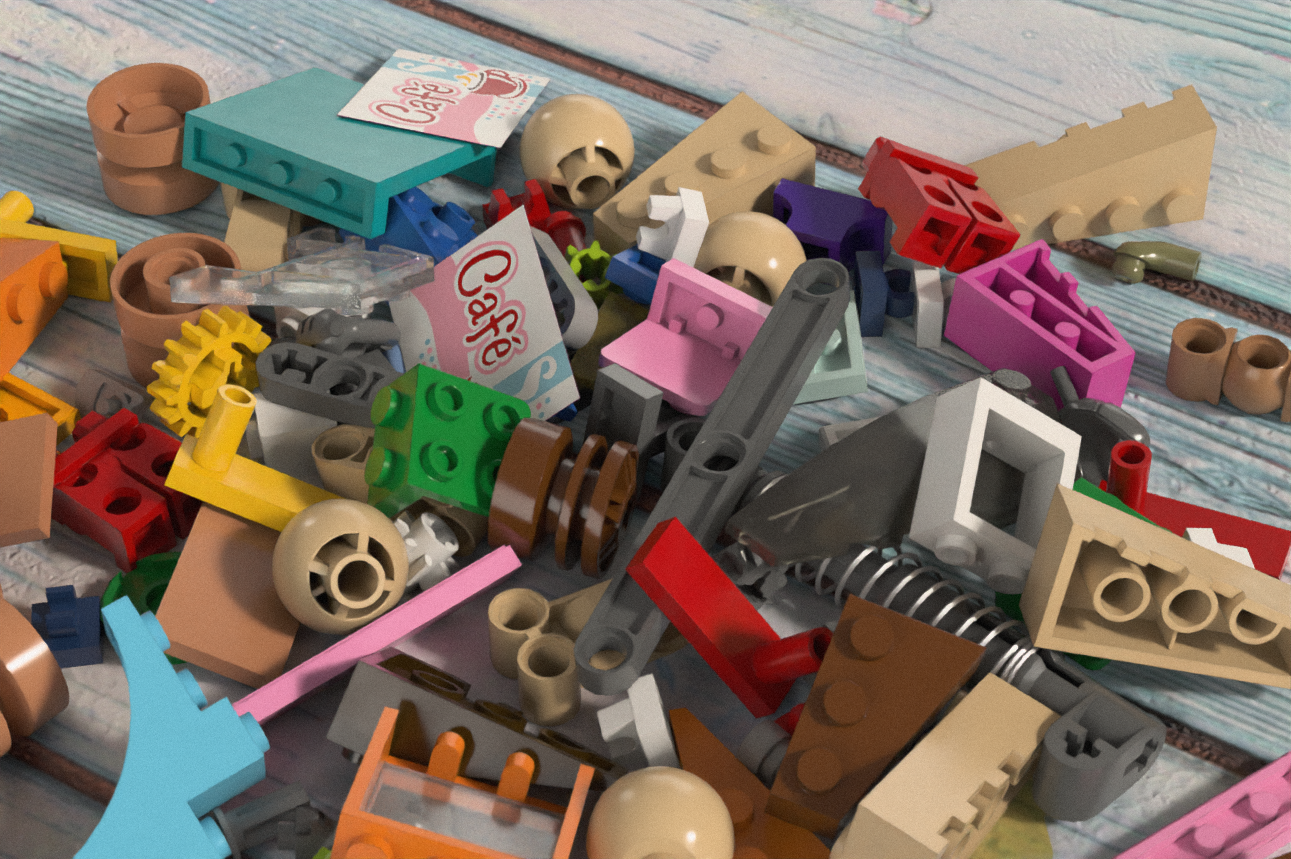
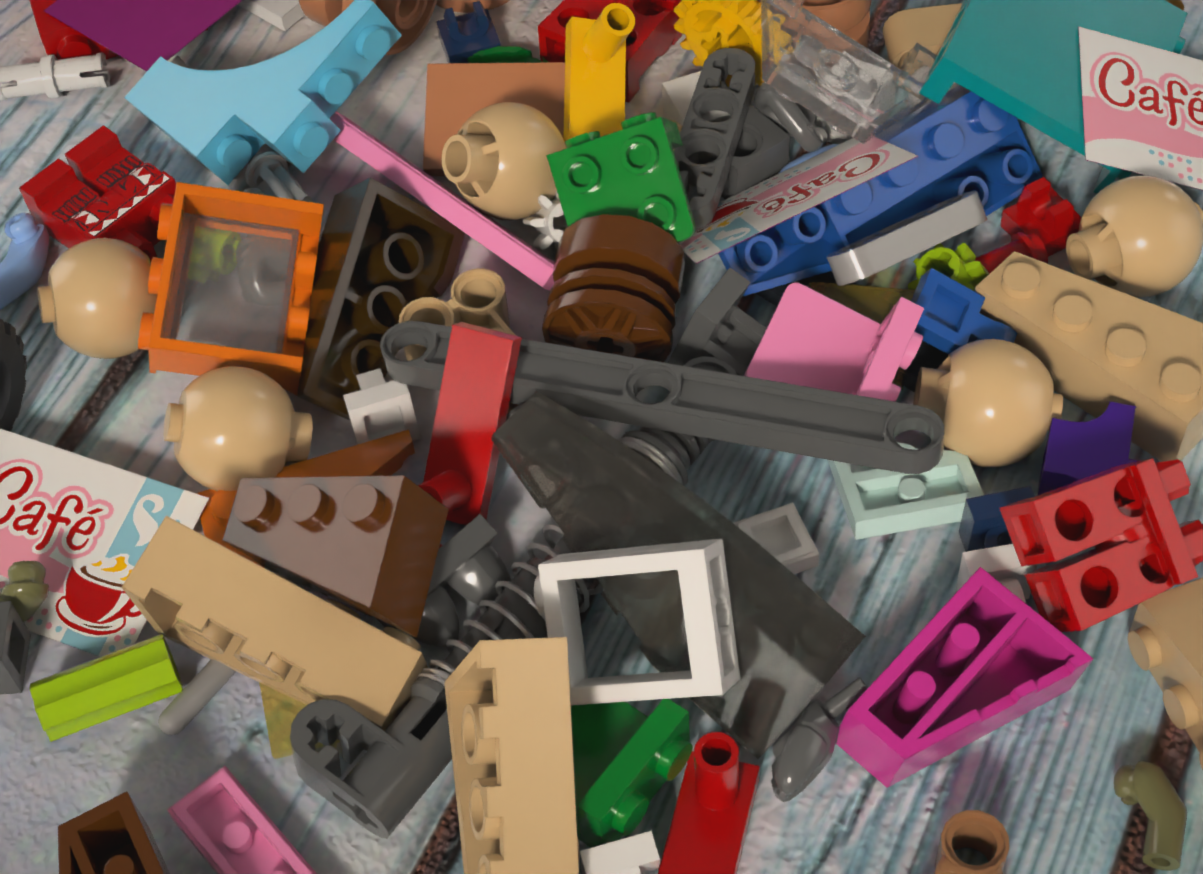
camera: 85 degrees right, 10 degrees up
(683, 227) = (990, 310): white tile -> none

